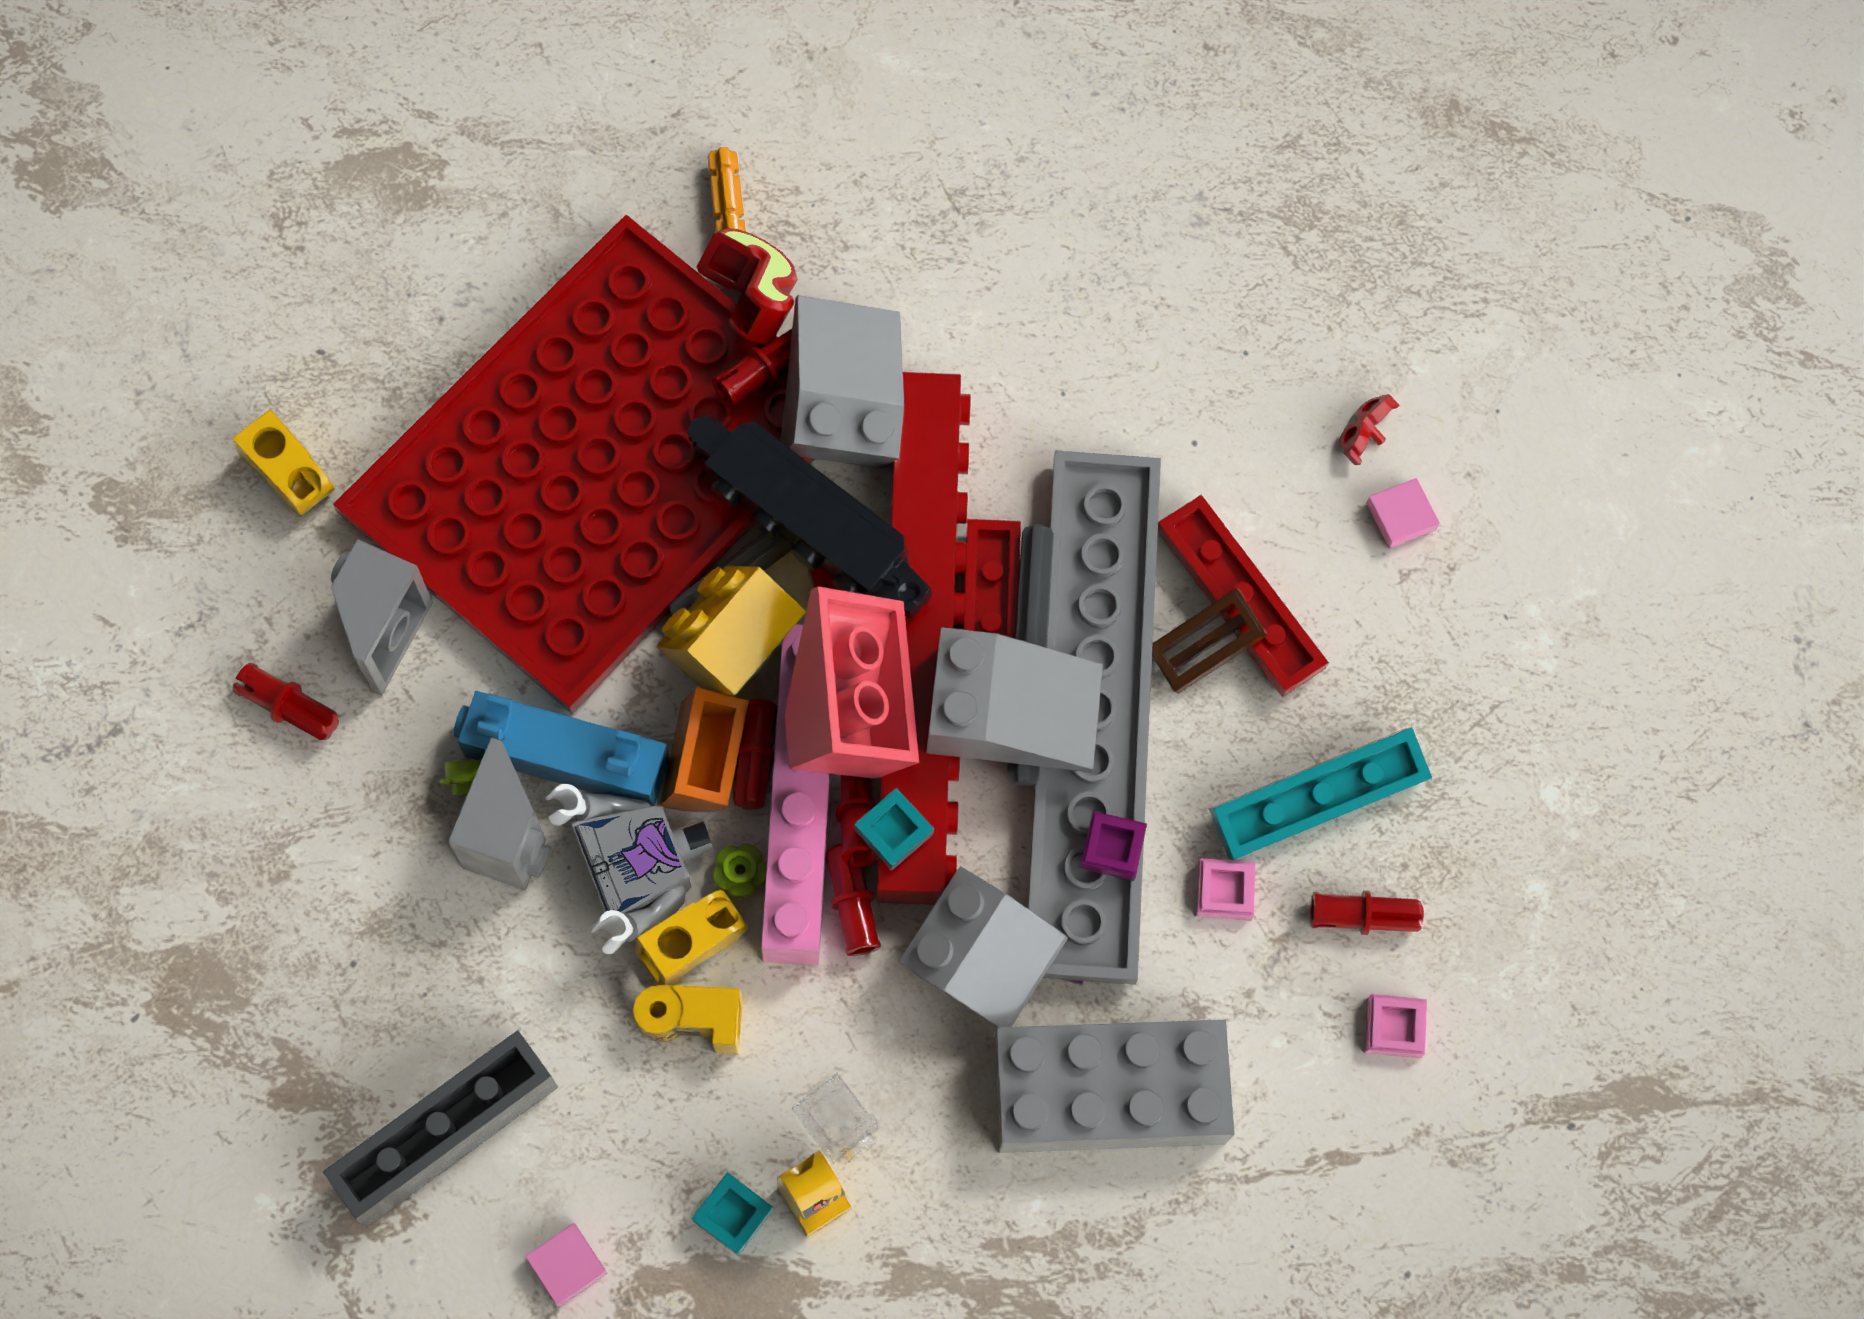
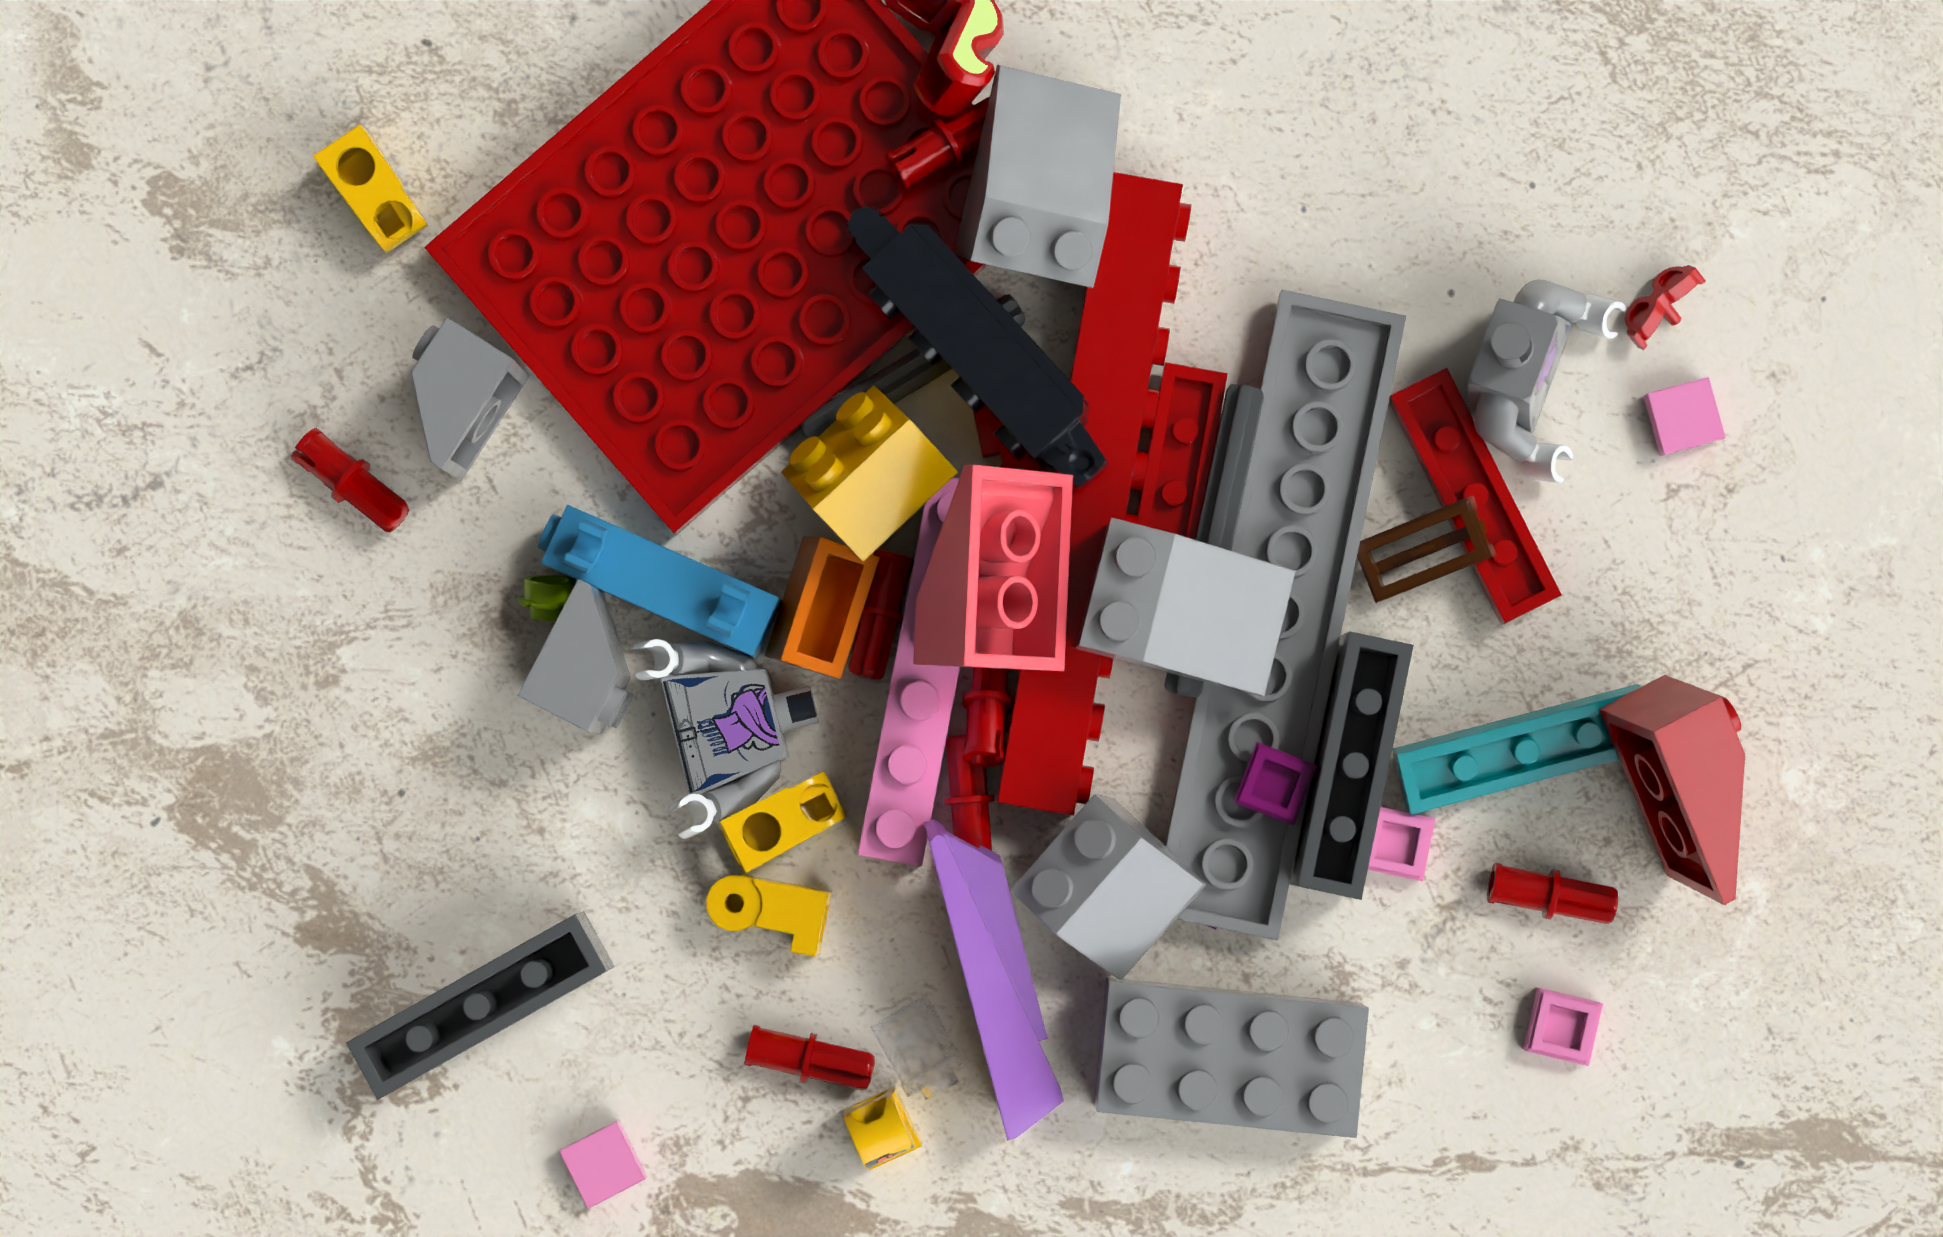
camera: 10 degrees right, 15 degrees up
(732, 1214) = (790, 1137): teal plate -> none
(741, 1142) = (809, 1058): none -> red axle
(746, 883) = (846, 765): lime plate -> none
(893, 829) = (1025, 740): teal plate -> none
(896, 1043) = (996, 978): none -> medium lavender wedge
(1176, 822) = (1351, 765): none -> dark grey brick
(1260, 482) = (1519, 366): none -> light grey torso
(1460, 790) = (1686, 777): none -> slope

